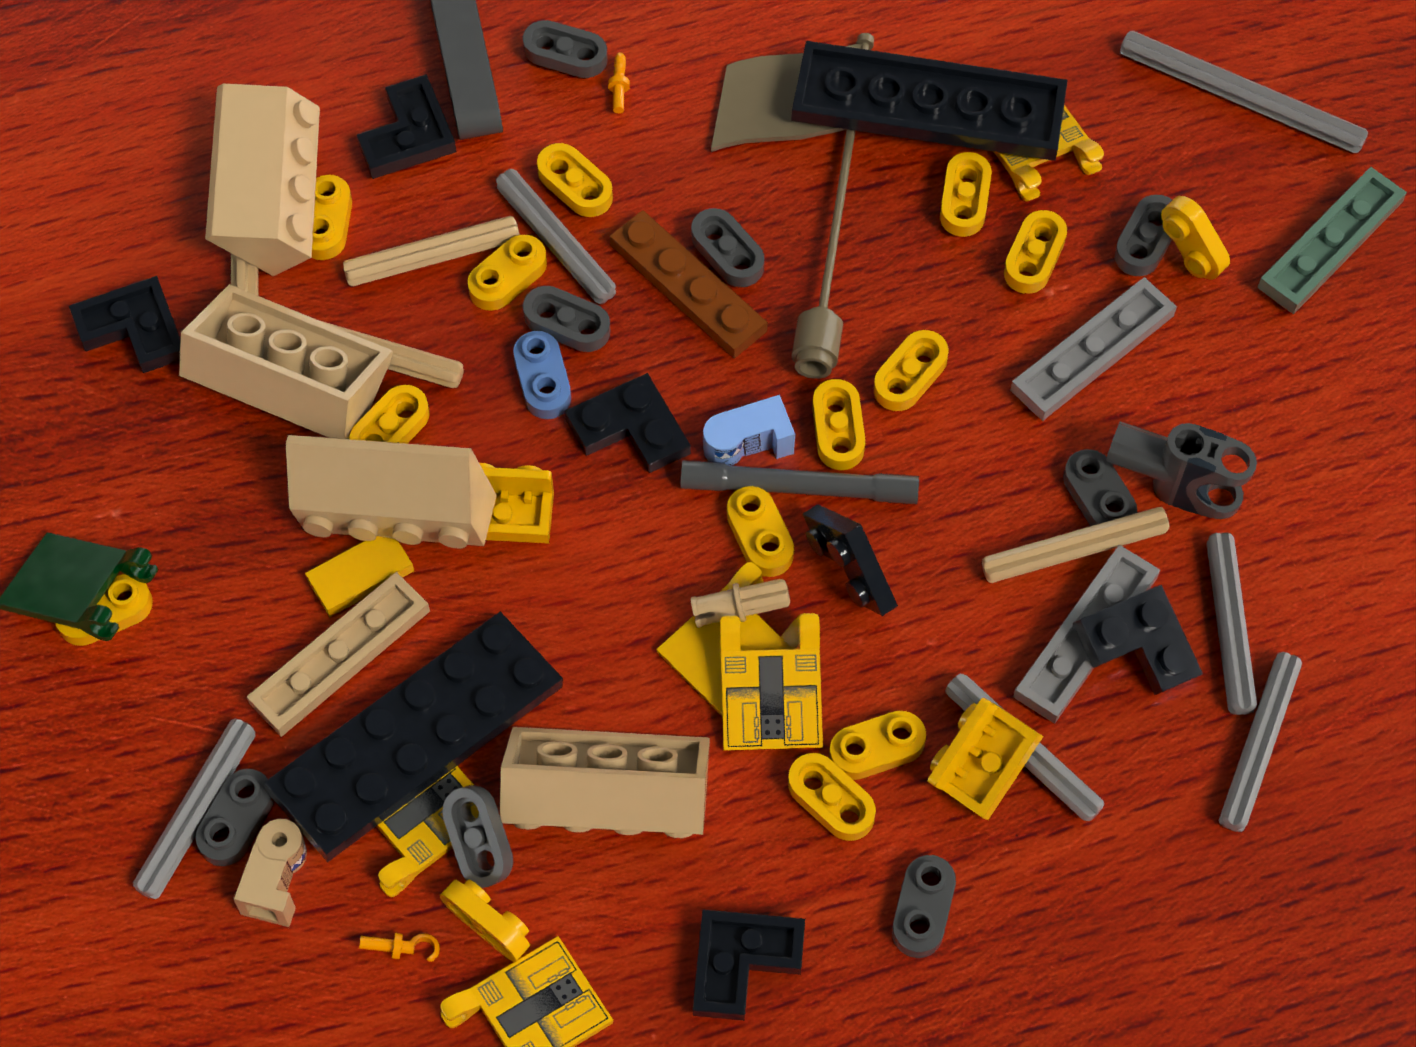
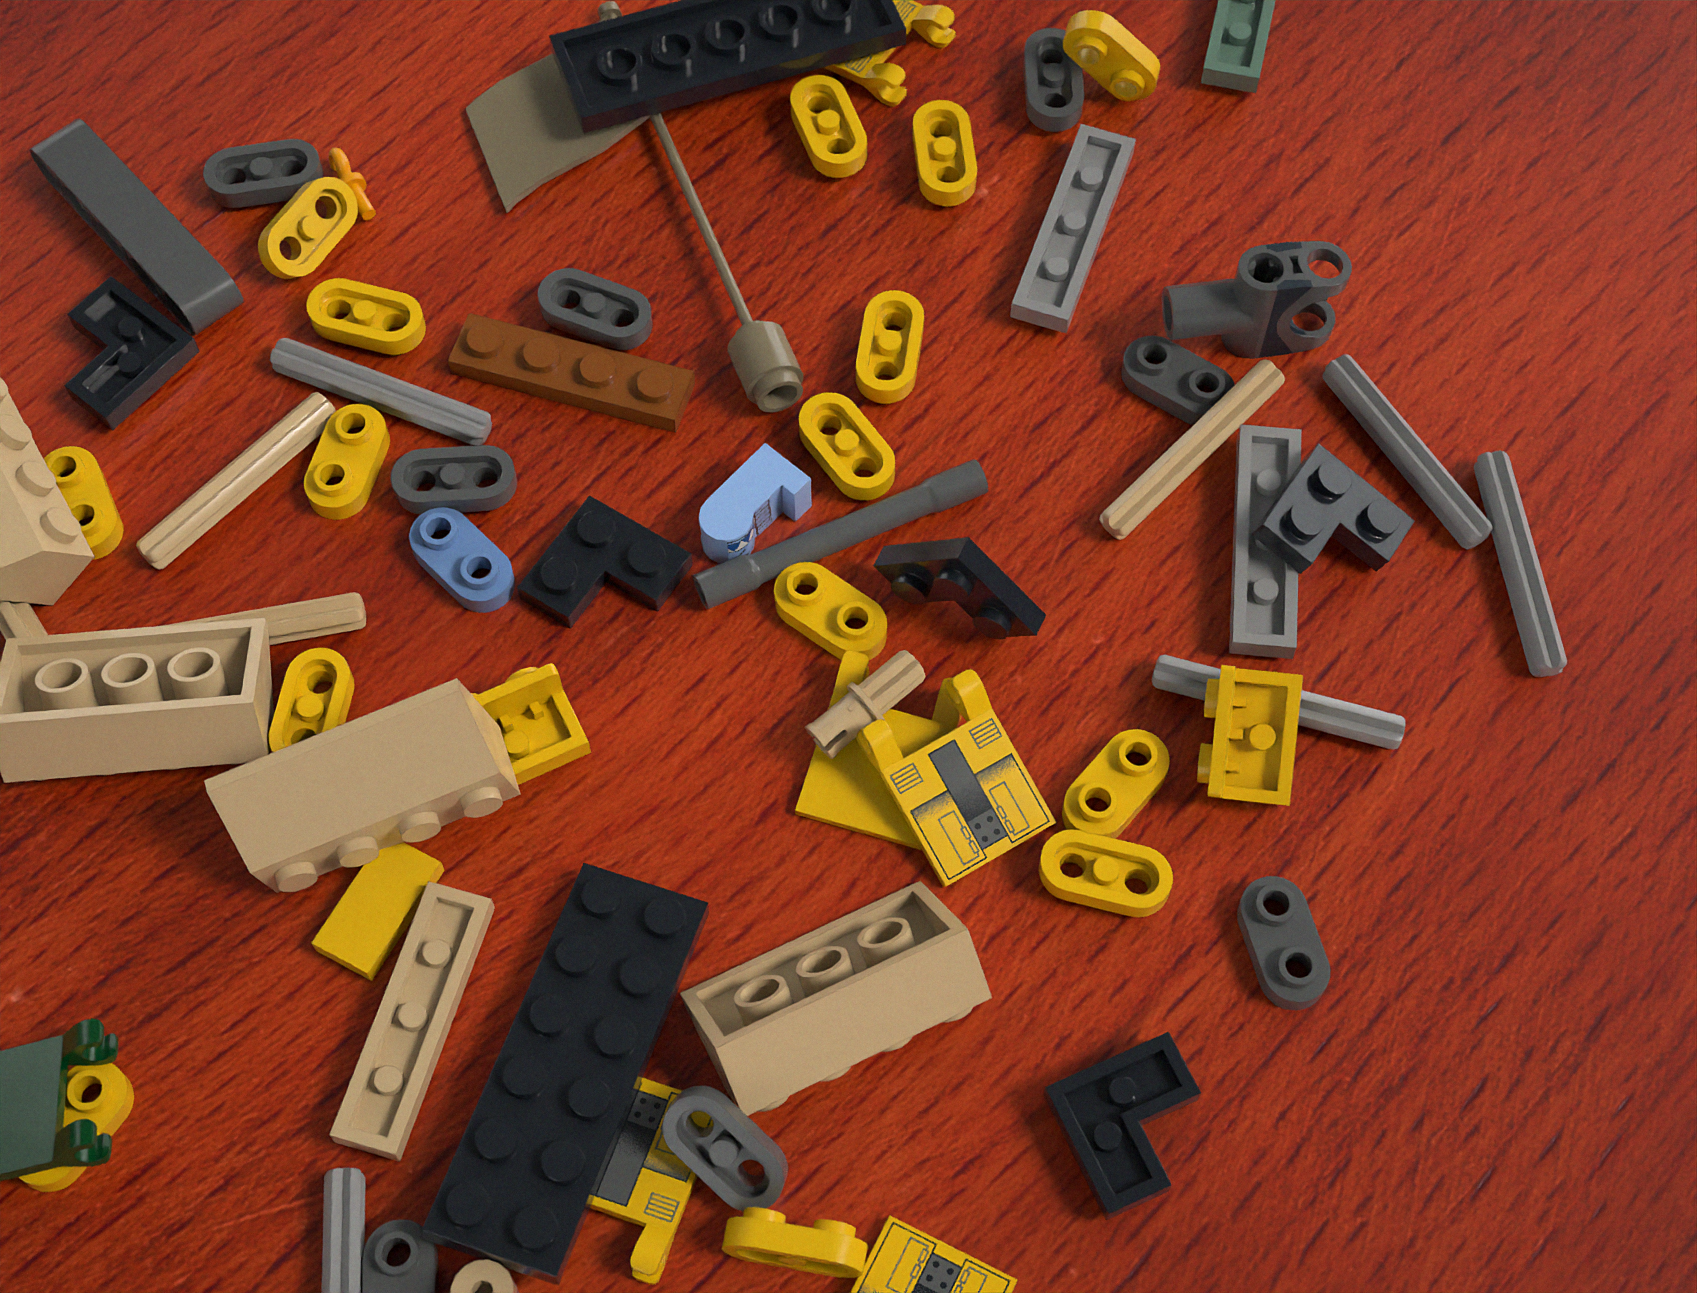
camera: 30 degrees left, 0 degrees up
(570, 102) = (305, 230): none -> yellow plate

